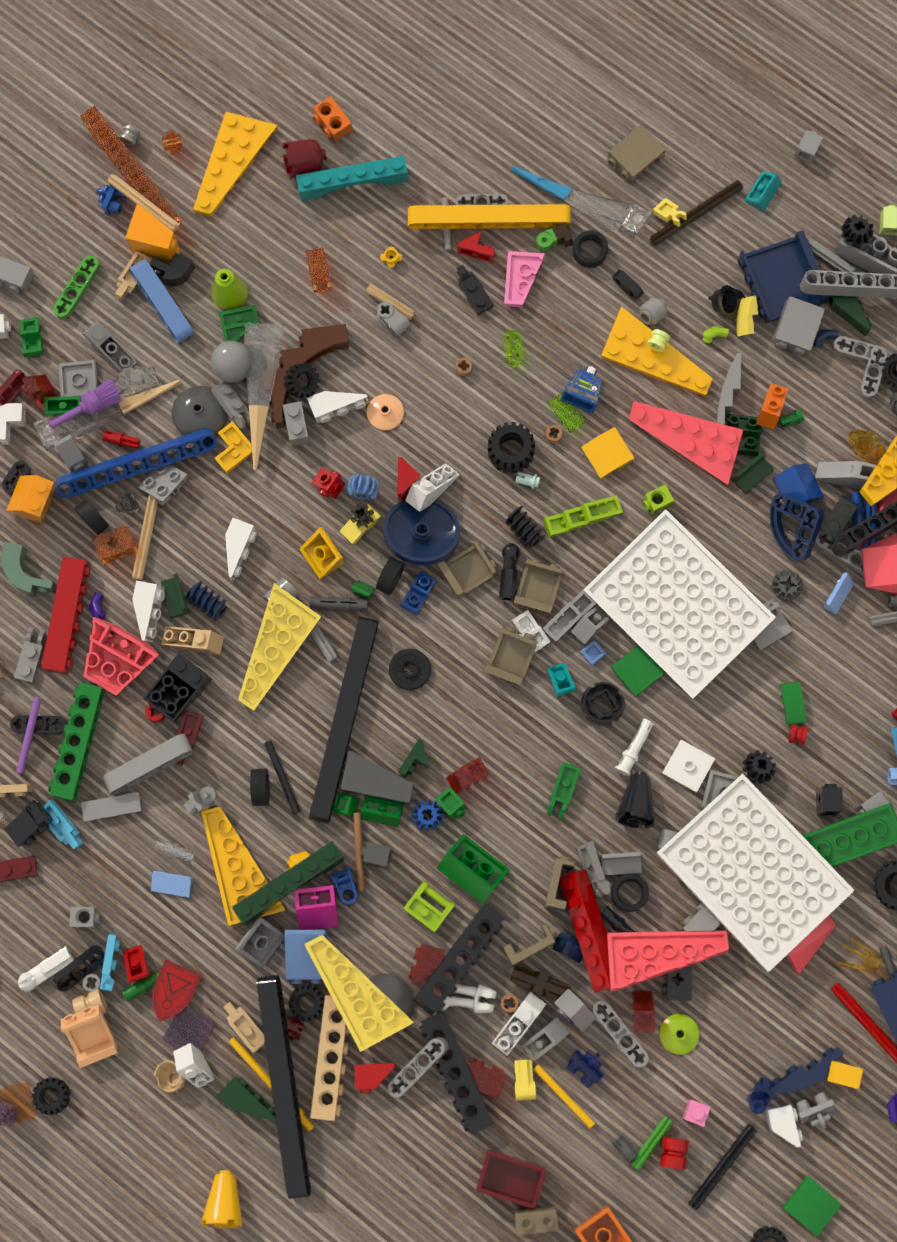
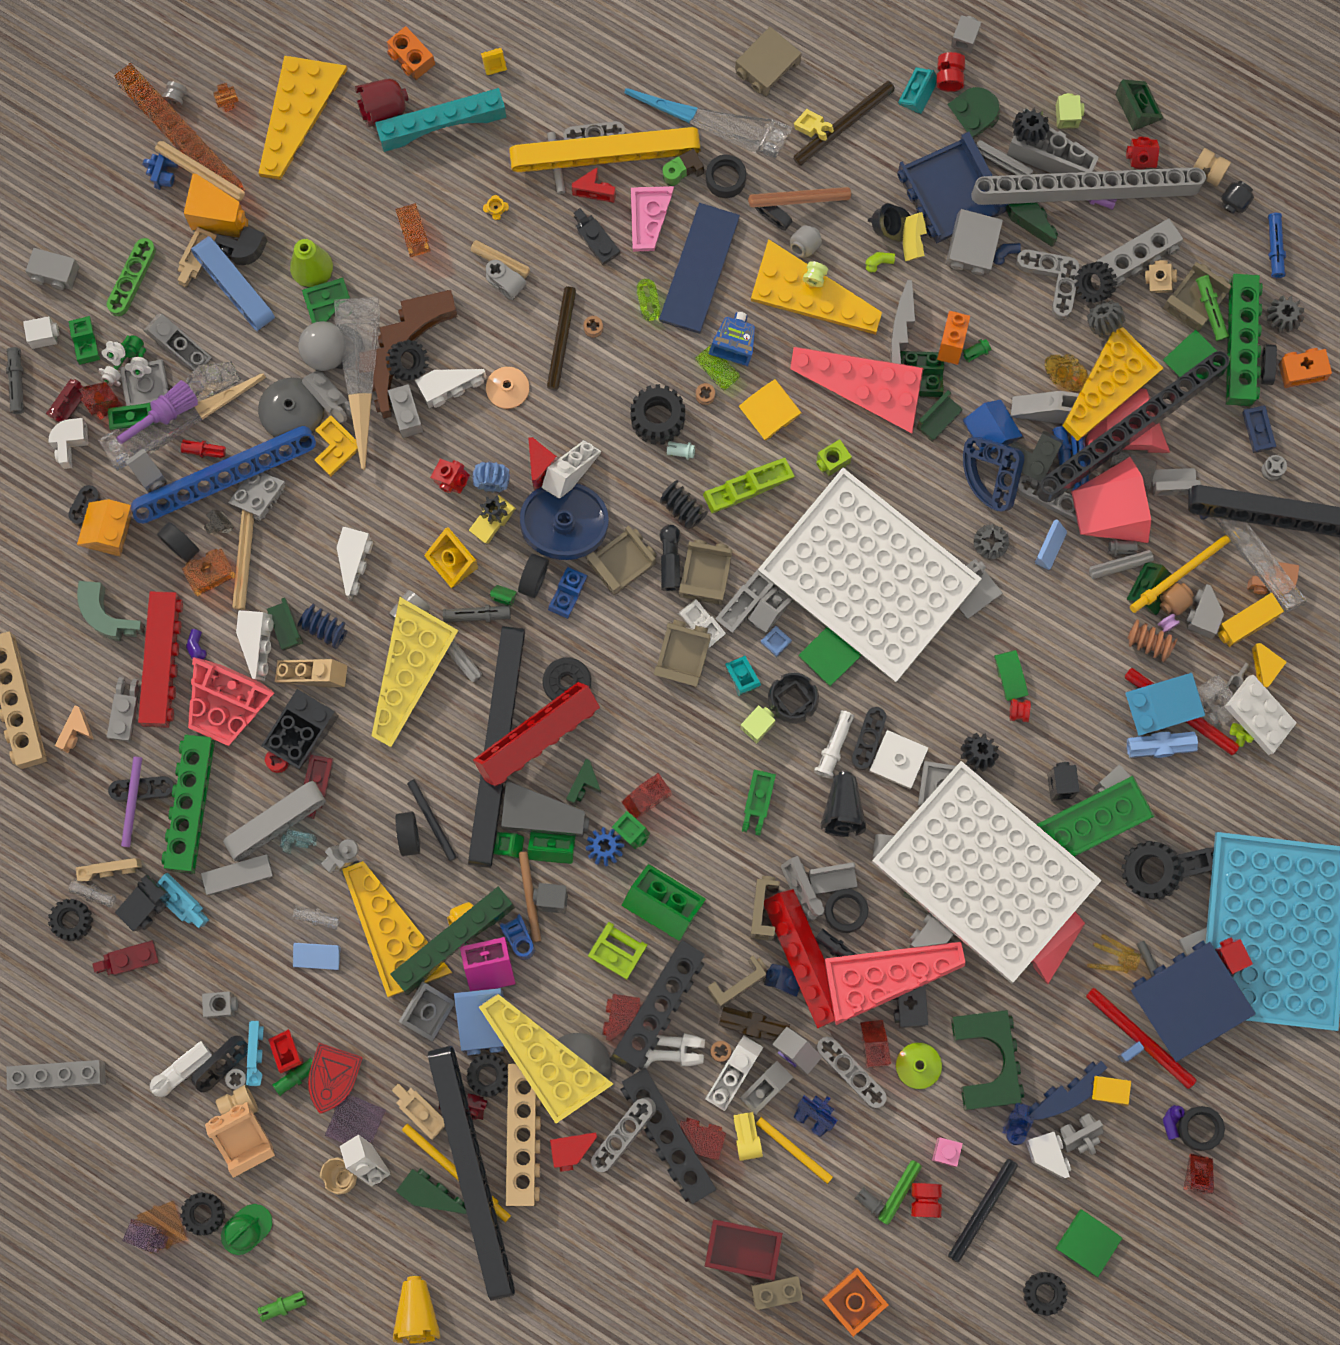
camera: 10 degrees left, 0 degrees up
(57, 351) = (117, 353): none -> white plant
(87, 1113) = (246, 1229): none -> green piece
(110, 1183) = (282, 1306): none -> bright green pin
(169, 783) = (302, 840): none -> clear light blue bracket
(379, 712) = (536, 734): none -> red brick
(402, 132) = (493, 61): none -> yellow tile
(435, 374) = (561, 338): none -> dark brown axle
(559, 325) = (699, 268): none -> dark blue tile
(570, 722) = (758, 723): none -> yellowish green brick
(651, 272) = (799, 197): none -> nougat axle
(675, 734) = (879, 725): none -> black beam
(753, 1061) = (997, 1029): none -> dark green arch
(792, 177) = (950, 74): none -> red wheel
(811, 212) = (976, 110): none -> dark green slope
(865, 1042) = (1131, 1052): none -> medium blue tile

